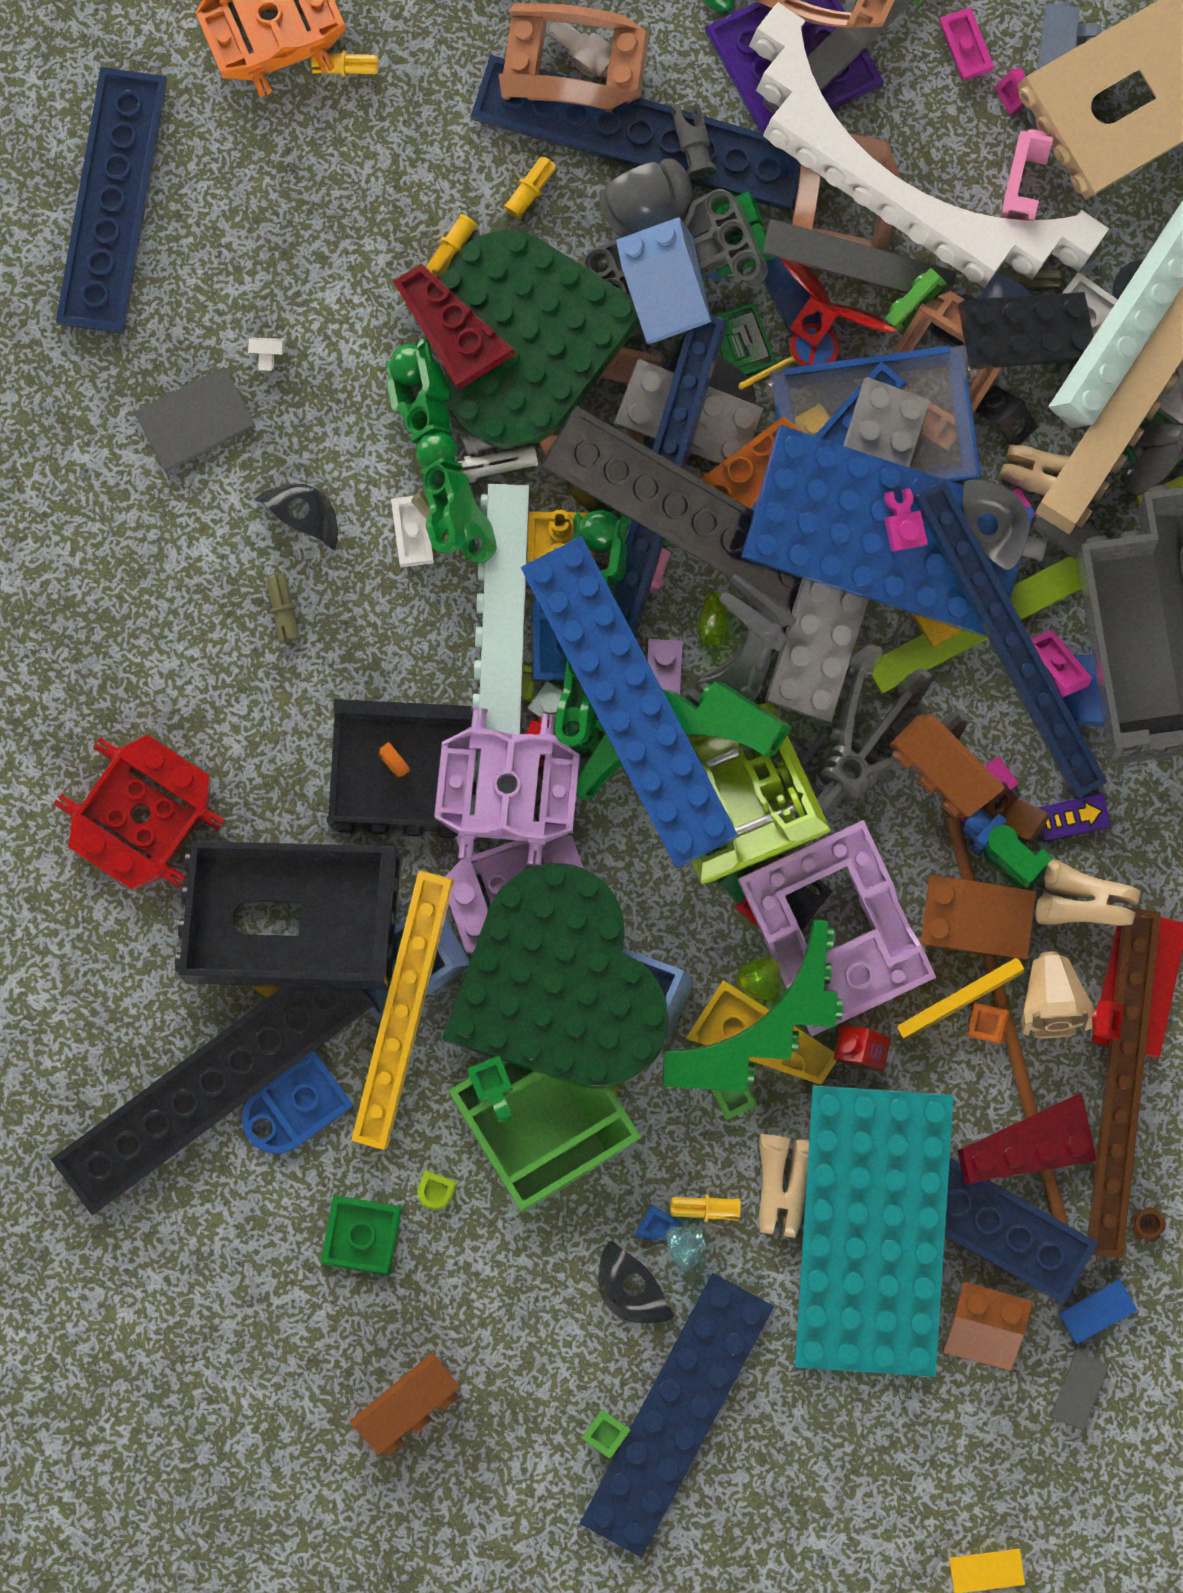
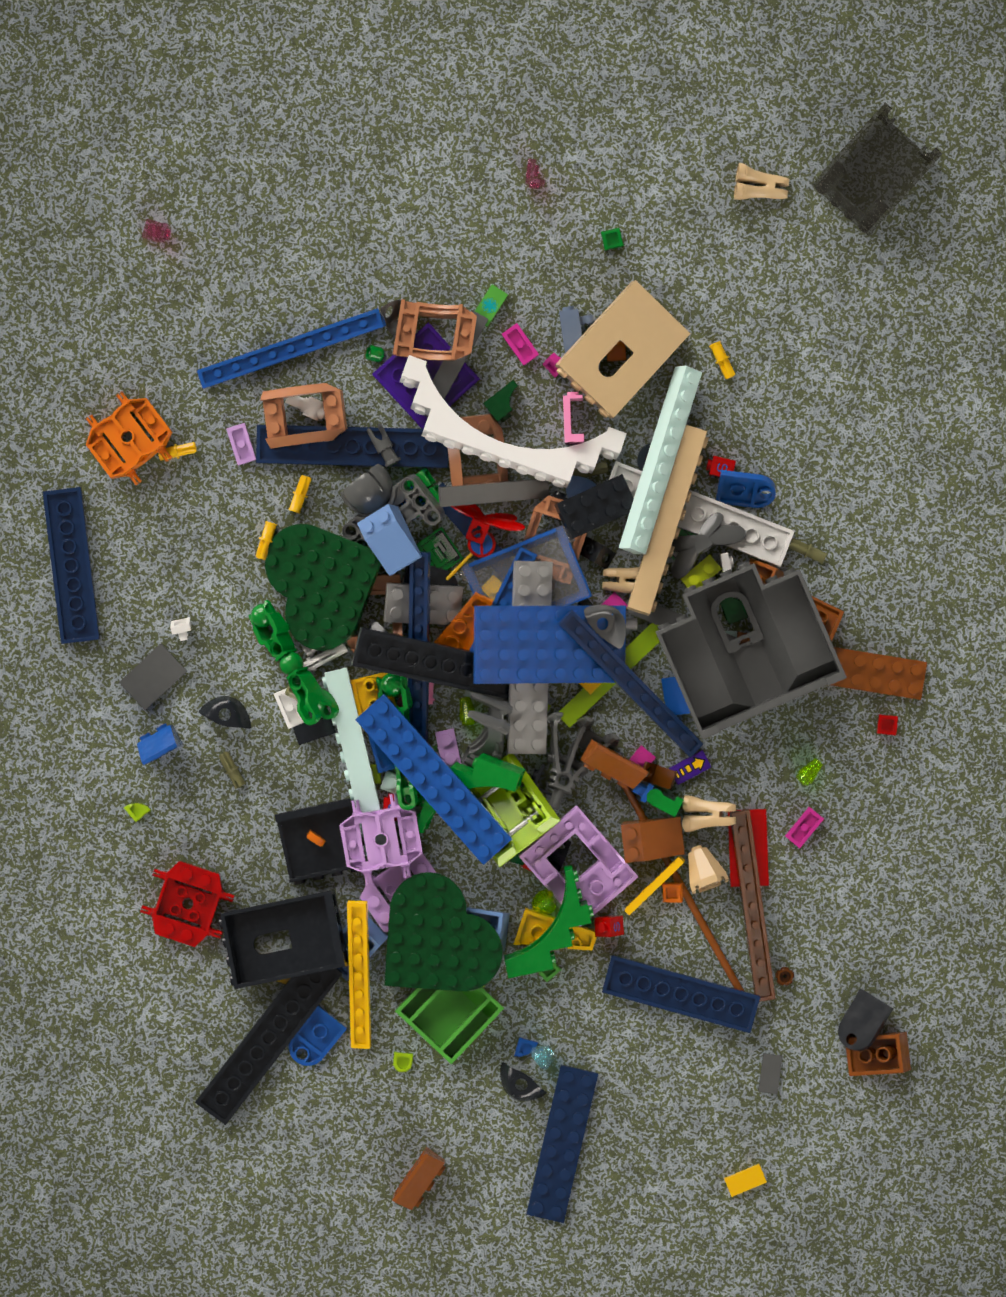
camera: 10 degrees left, 10 degrees up
(100, 635) = (137, 810): none -> lime tile
(172, 529) = (160, 743): none -> blue slope
(361, 1235) = (370, 1095): green tile -> none
(443, 578) = (308, 733): none -> black slope
(455, 80) = (241, 444): none -> lavender plate
(456, 334) = (279, 591): dark red wing -> none
(491, 1084) = (416, 1003): green plate -> none
(605, 1434) = (527, 1164): bright green plate -> none
(706, 1208) = (548, 1032): yellow axle -> none
(773, 1159) = (594, 994): tan piece -> none
(874, 1230) = (640, 1021): teal plate -> none
(905, 527) = (557, 641): dark pink plate -> none
(906, 126) = (499, 403): none -> dark green arch
(924, 290) = (533, 499): bright green plate -> none
(987, 1326) = (712, 1053): dark orange slope -> none
(1035, 1144) = (718, 948): dark red wing -> none
(1061, 664) = (660, 686): dark pink plate -> none
(1097, 1311) = (769, 1029): blue tile -> none
(1107, 1019) = (735, 878): red plate -> none
(1123, 98) = (617, 353): none -> orange tile

